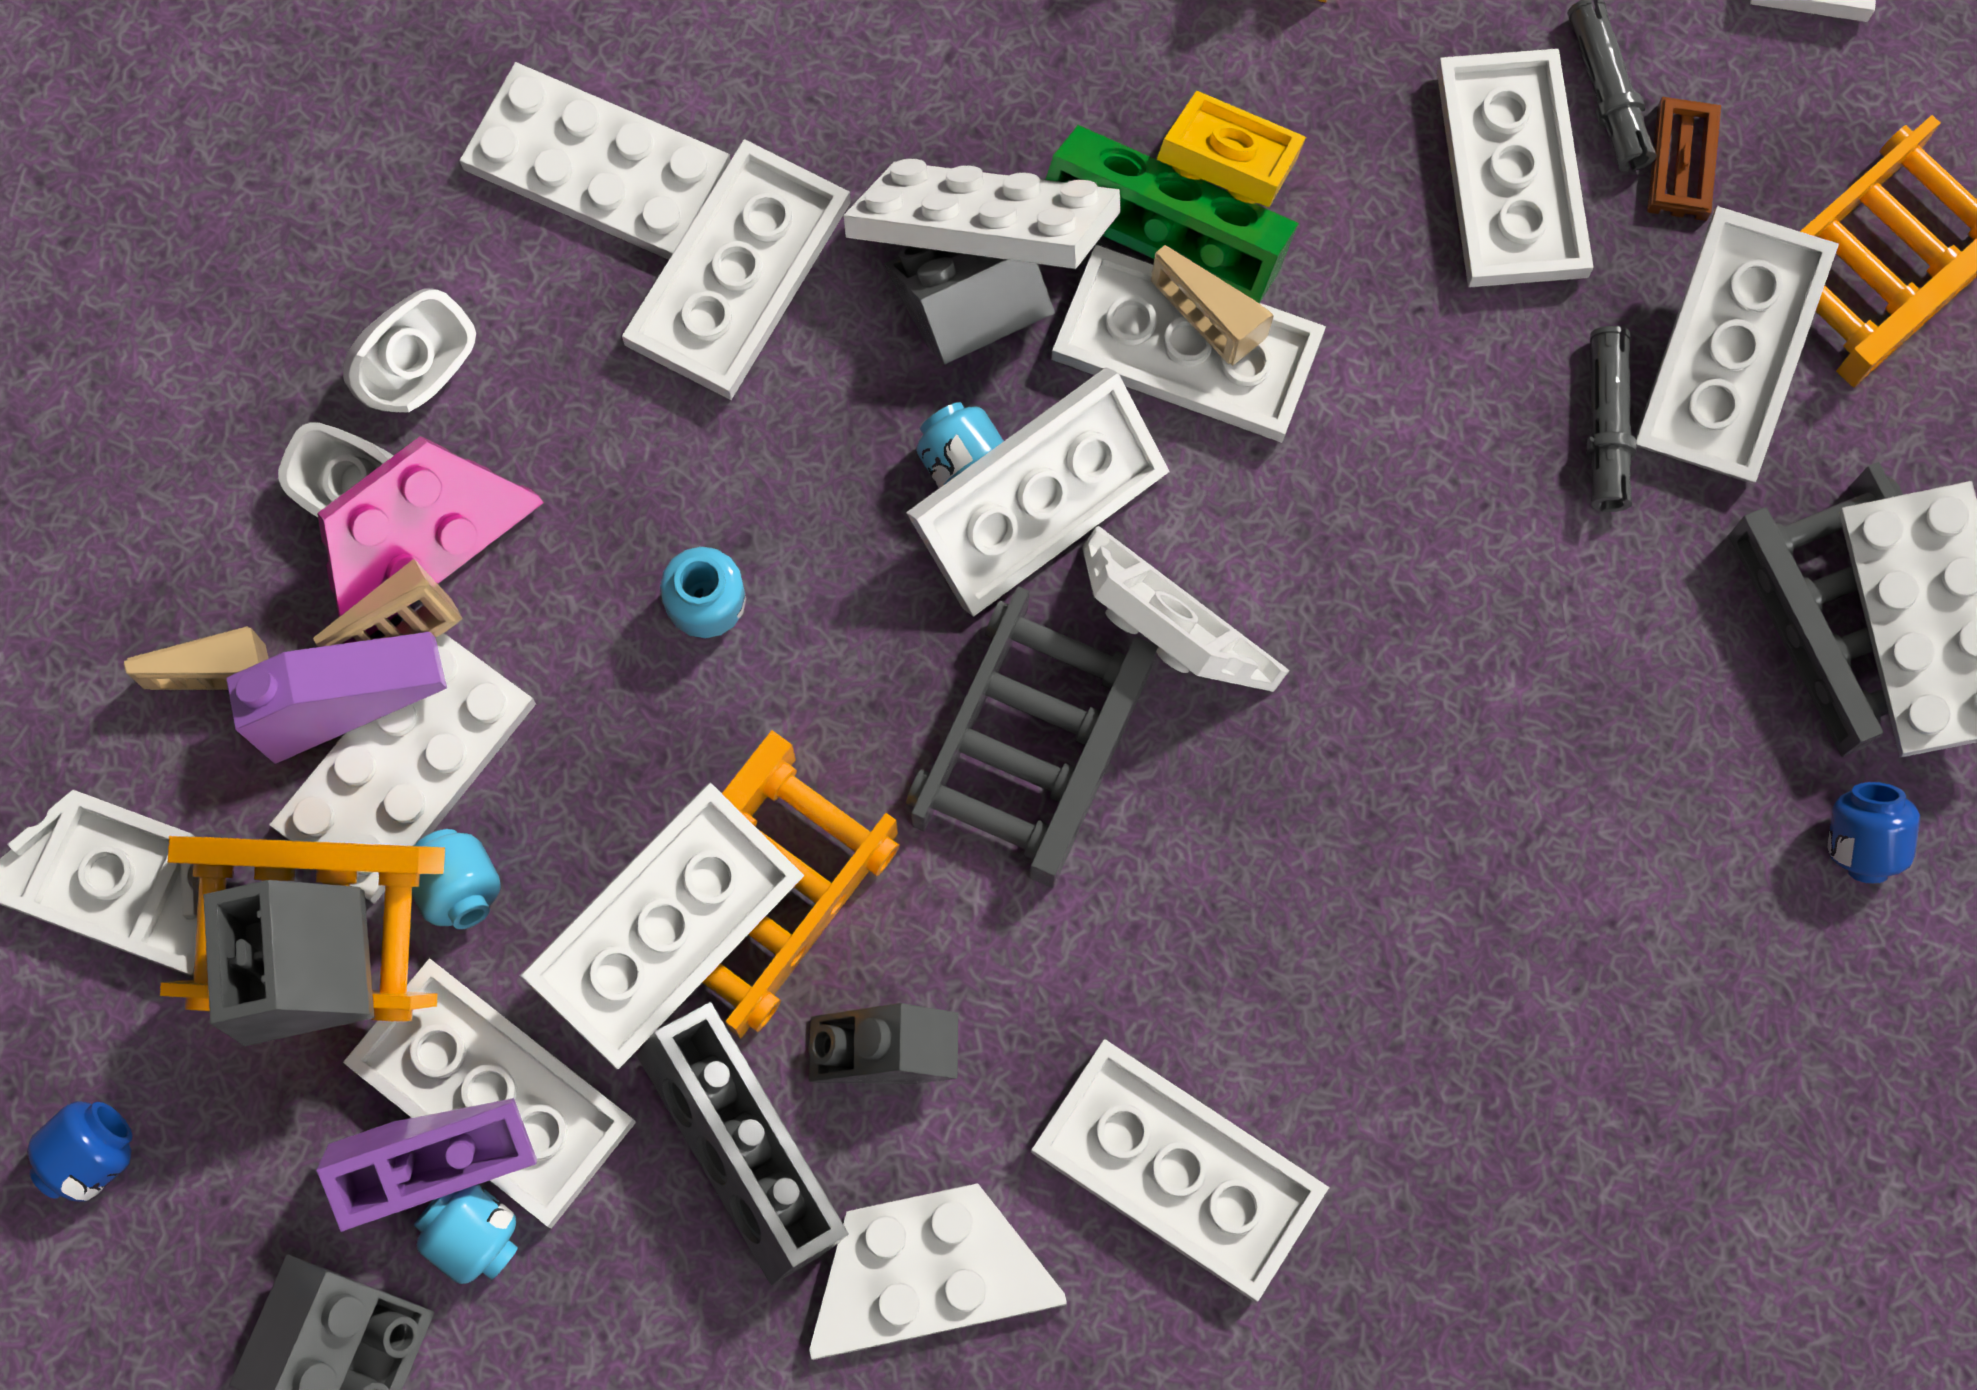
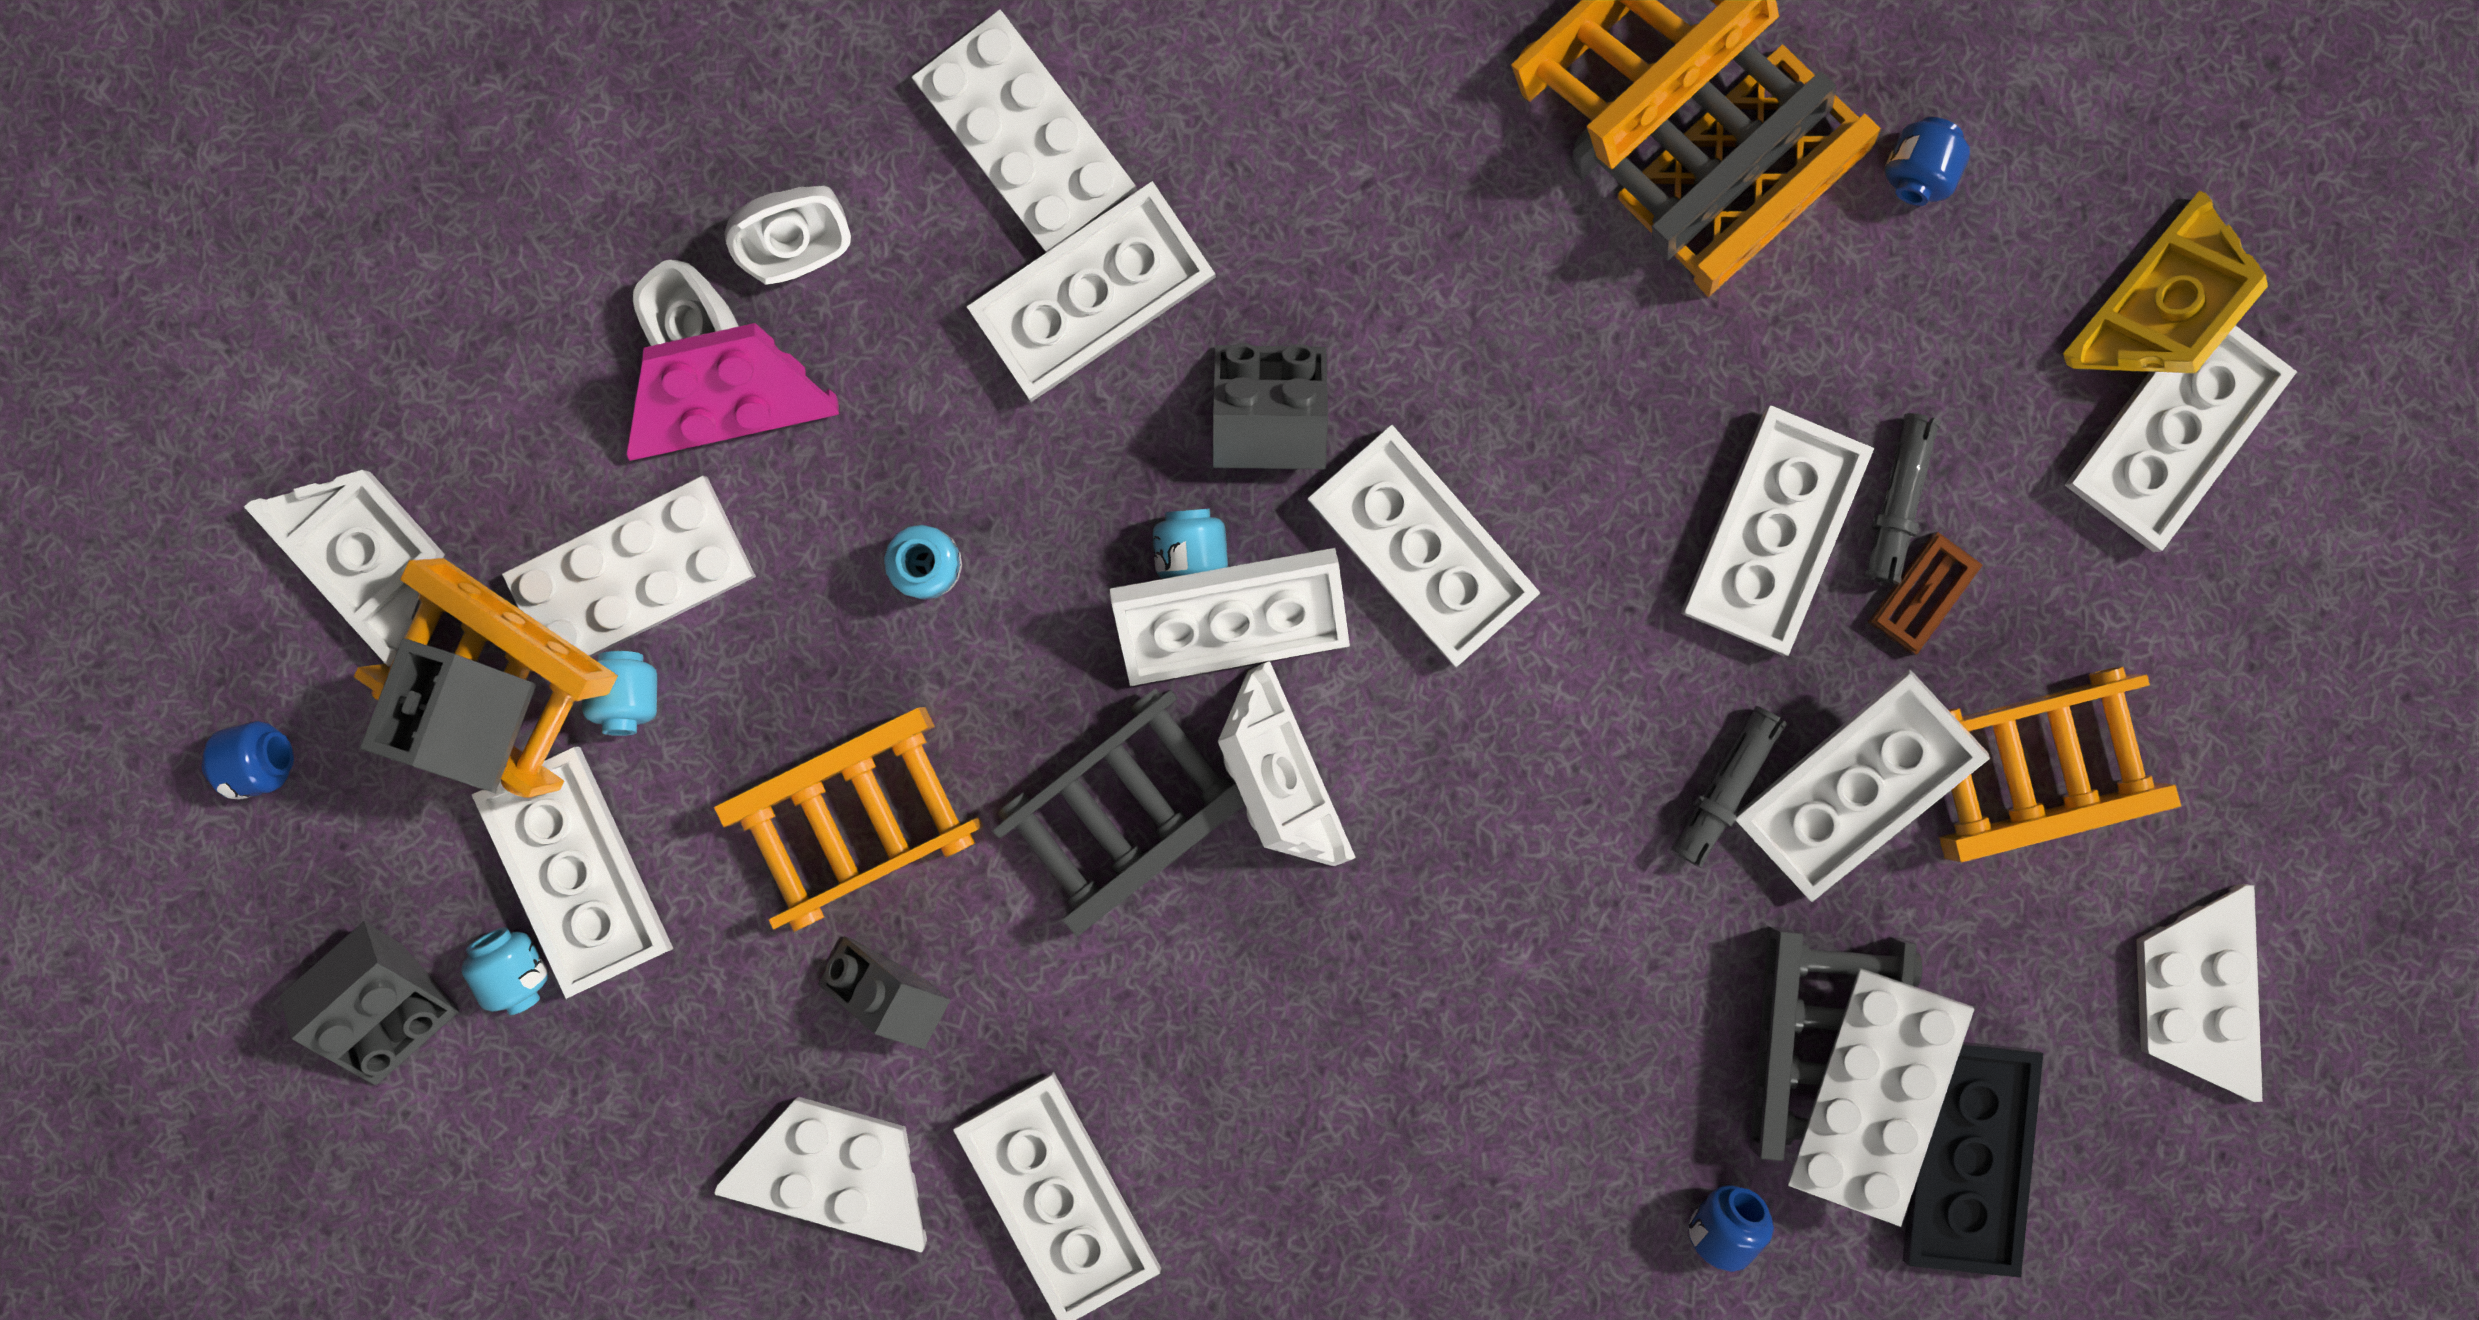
camera: 30 degrees right, 15 degrees up
(198, 663) = (526, 424): tan slope -> none
(330, 690) = (594, 495): medium lavender slope -> none
(394, 596) = (681, 457): tan slope -> none
(422, 1160) = (487, 906): medium lavender slope -> none
(662, 926) = (753, 825): white plate -> none
(741, 1143) = (737, 1016): dark grey brick -> none
(984, 213) = (1306, 361): white plate -> none
(1194, 218) = (1463, 430): green brick -> none
(1214, 308) = (1455, 546): tan slope -> none
(1231, 149) = (1548, 400): yellow plate -> none

